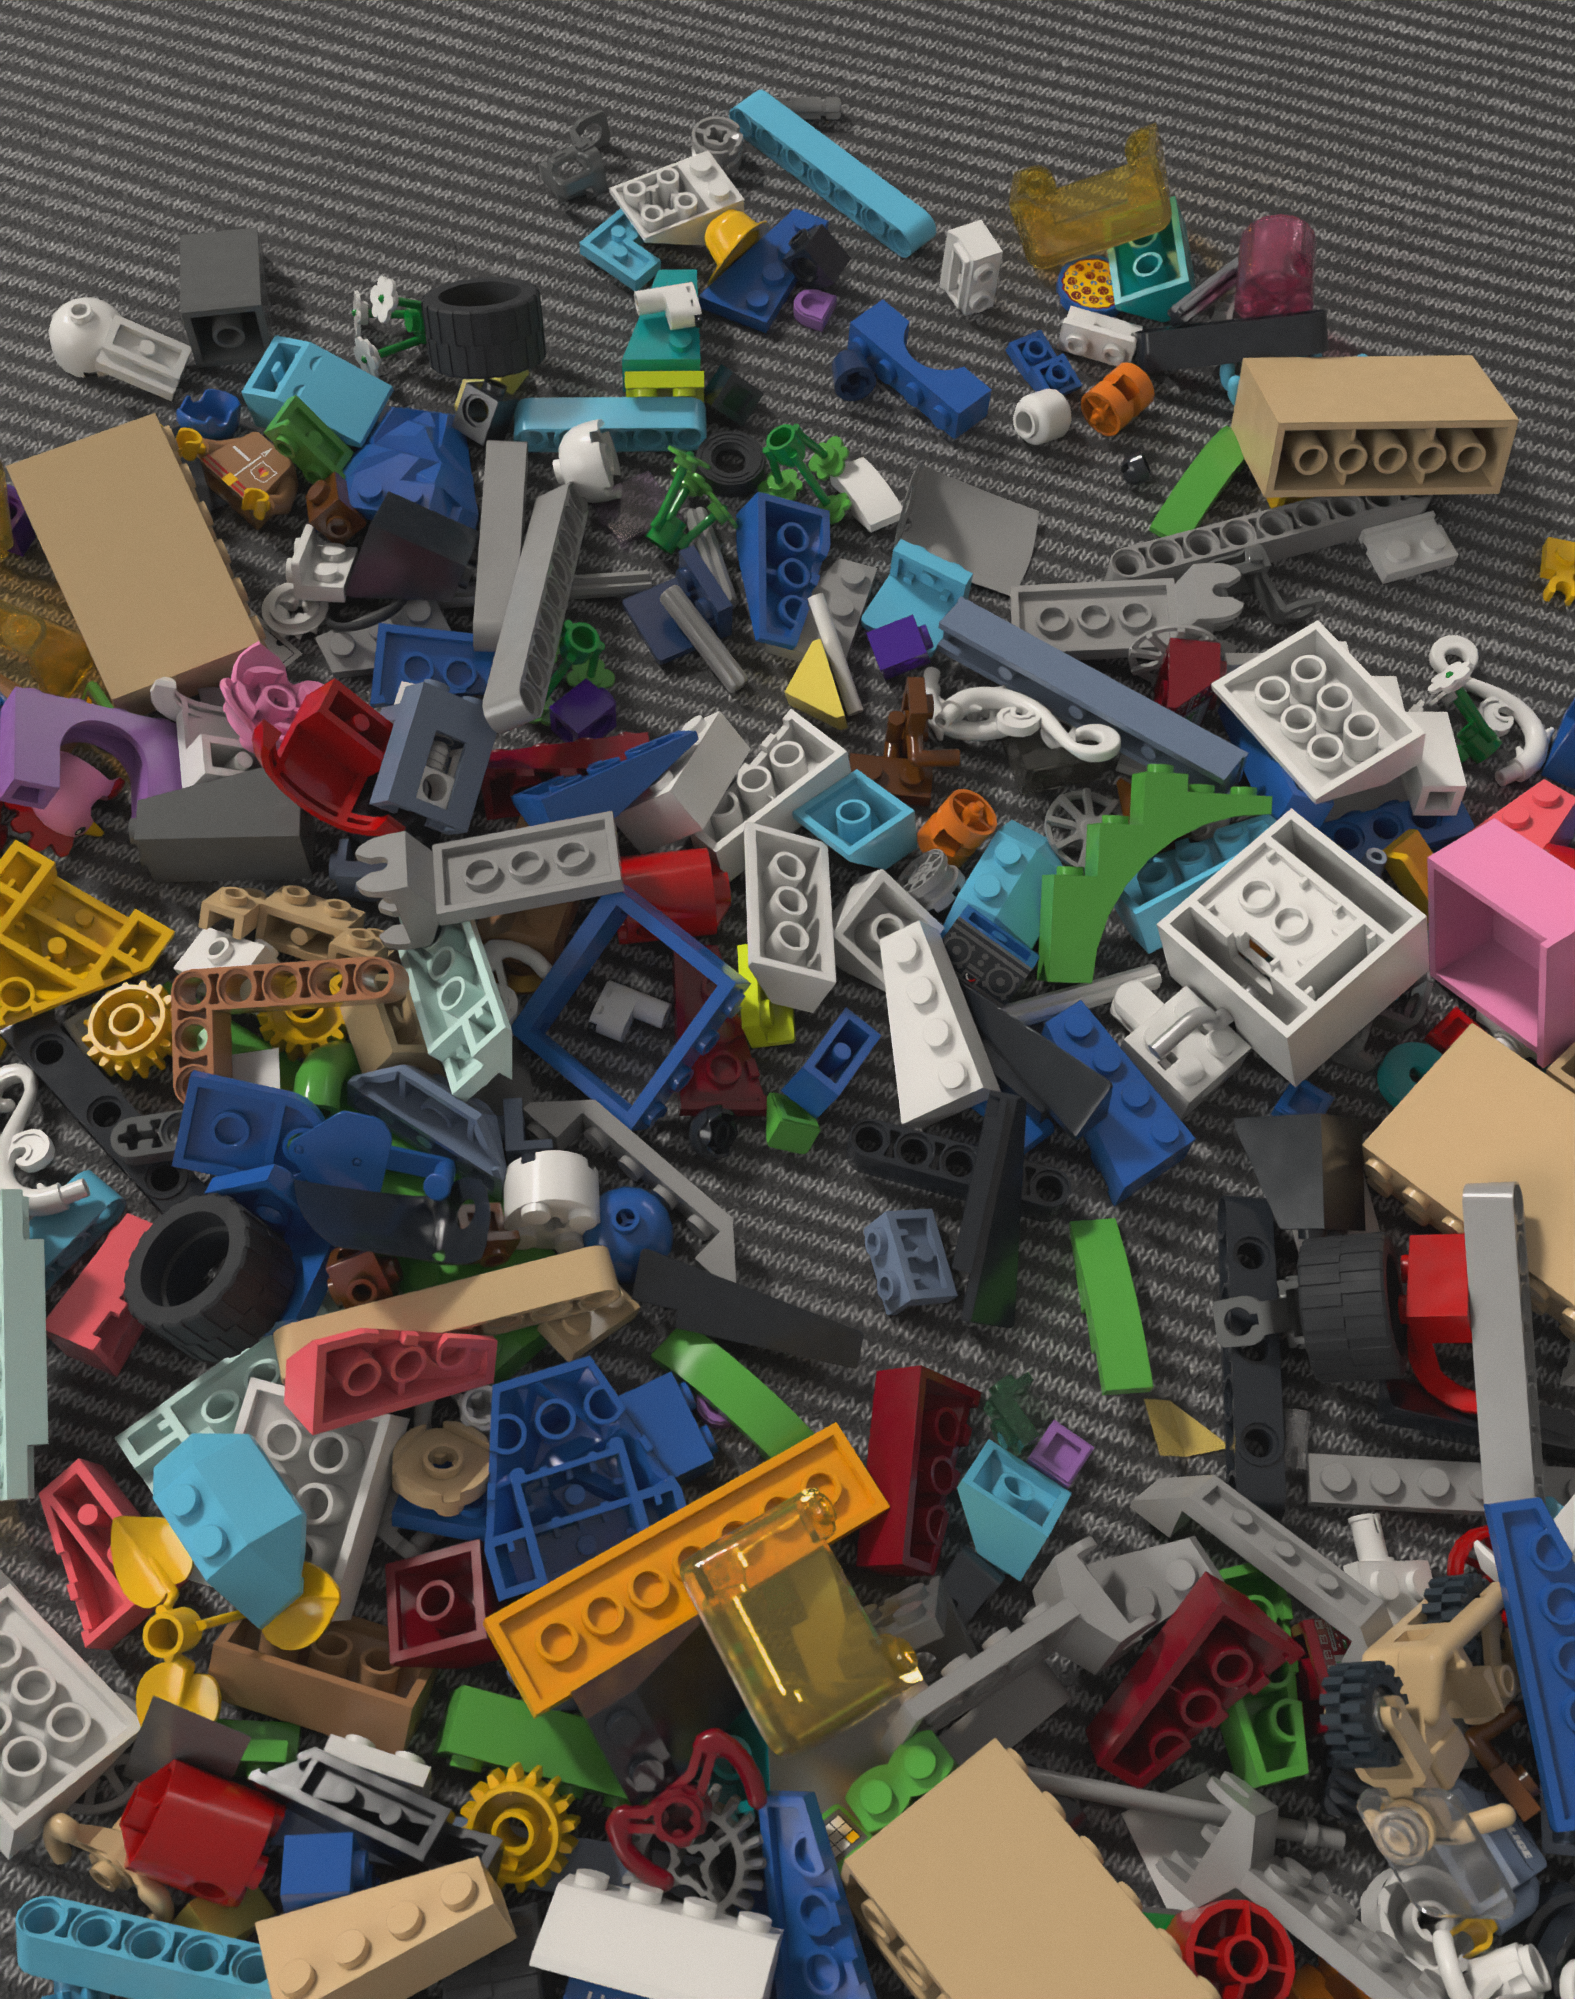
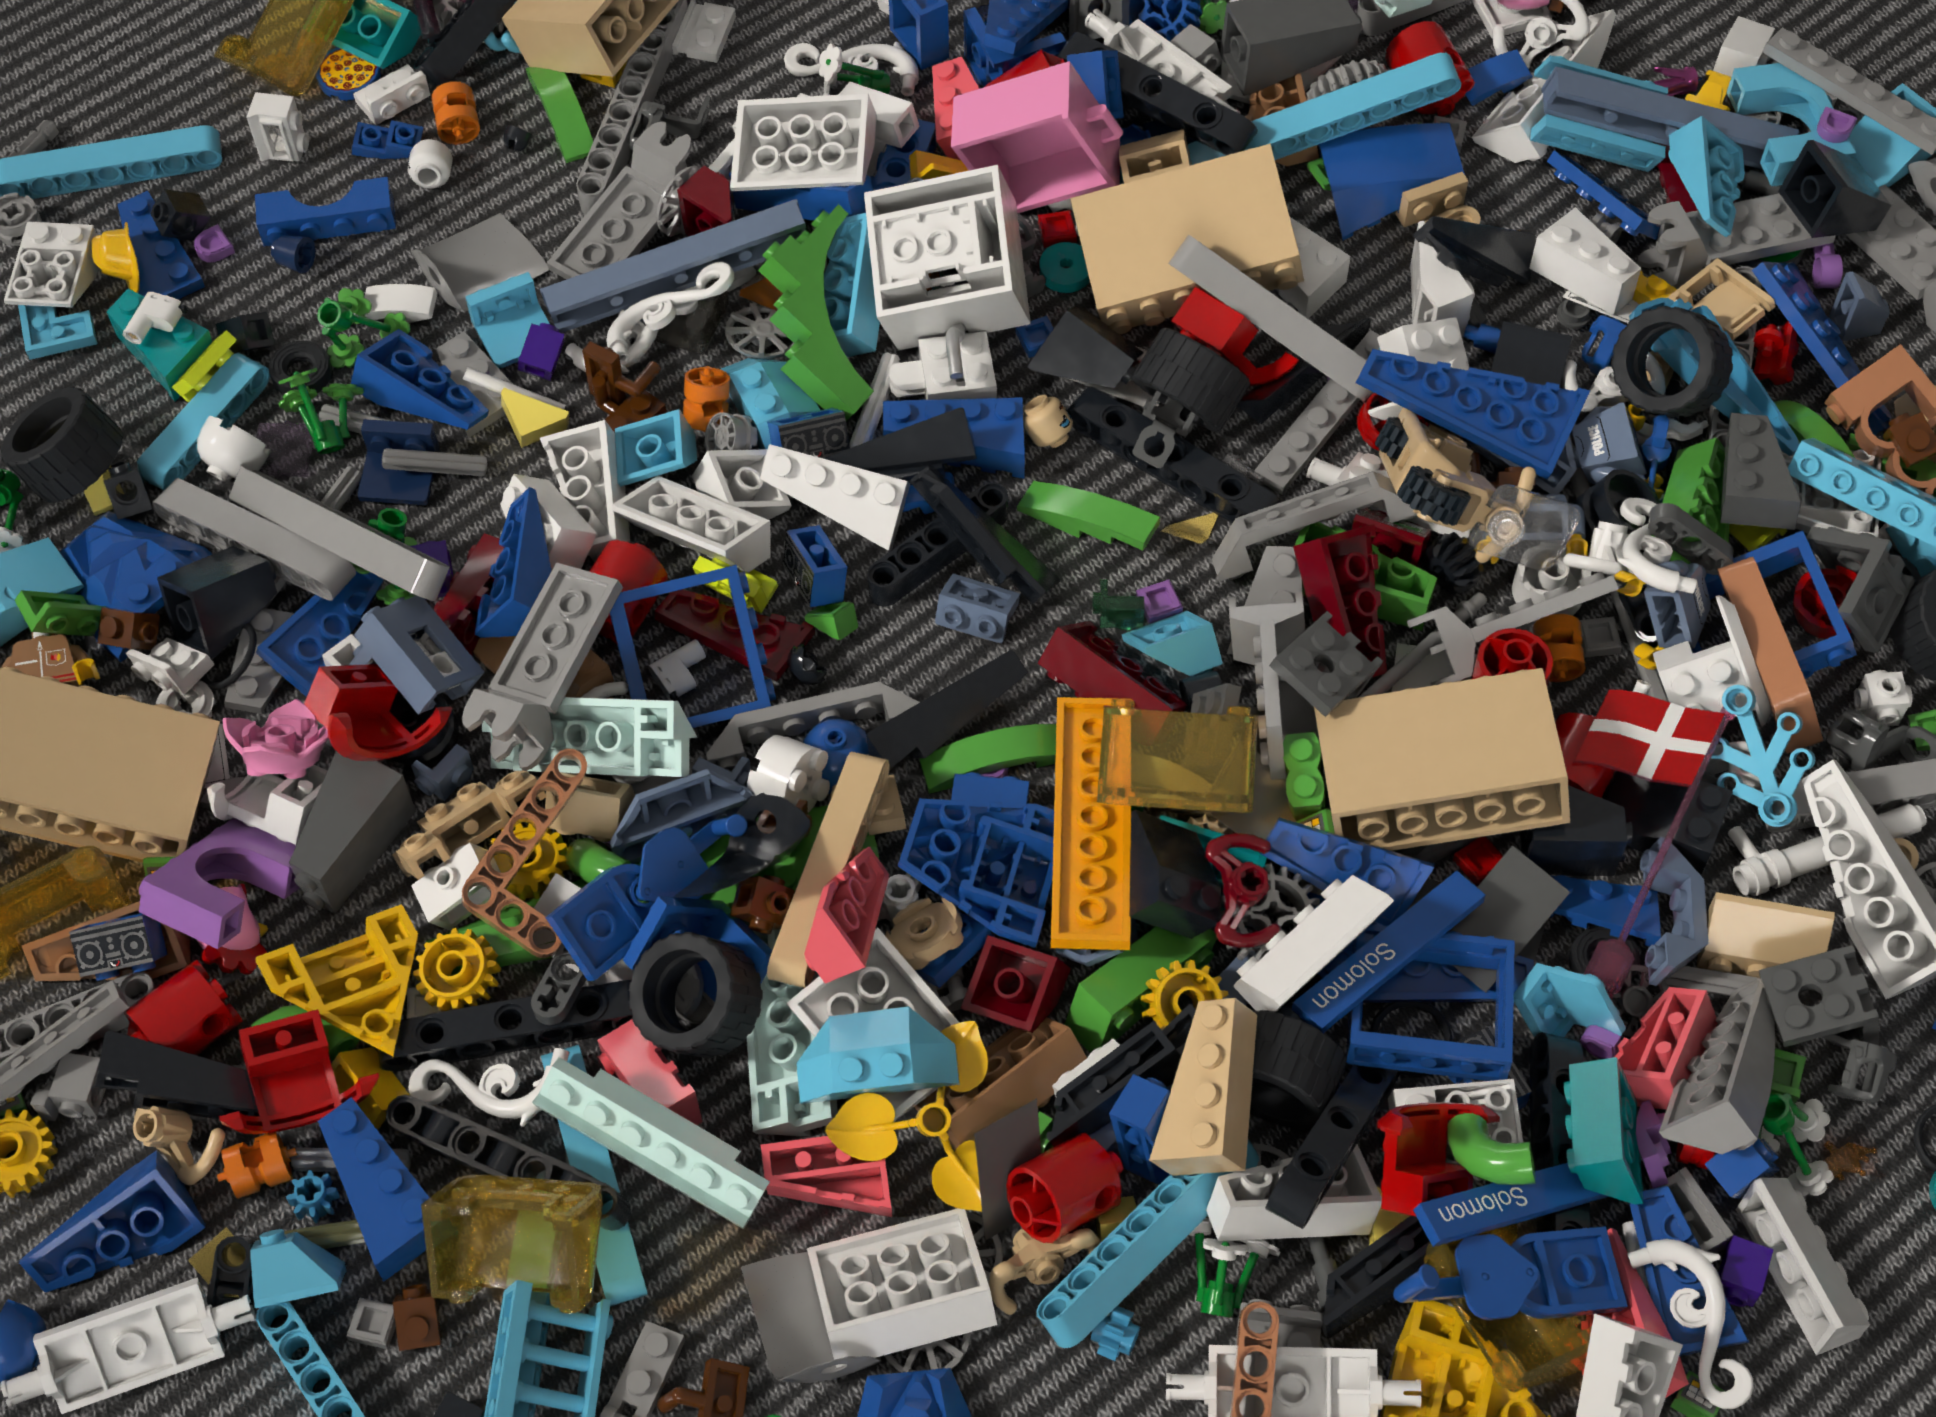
camera: 50 degrees left, 5 degrees down
(1080, 1722) = (1325, 666): none -> dark grey bracket
(1192, 1184) = (1047, 421): none -> tan head

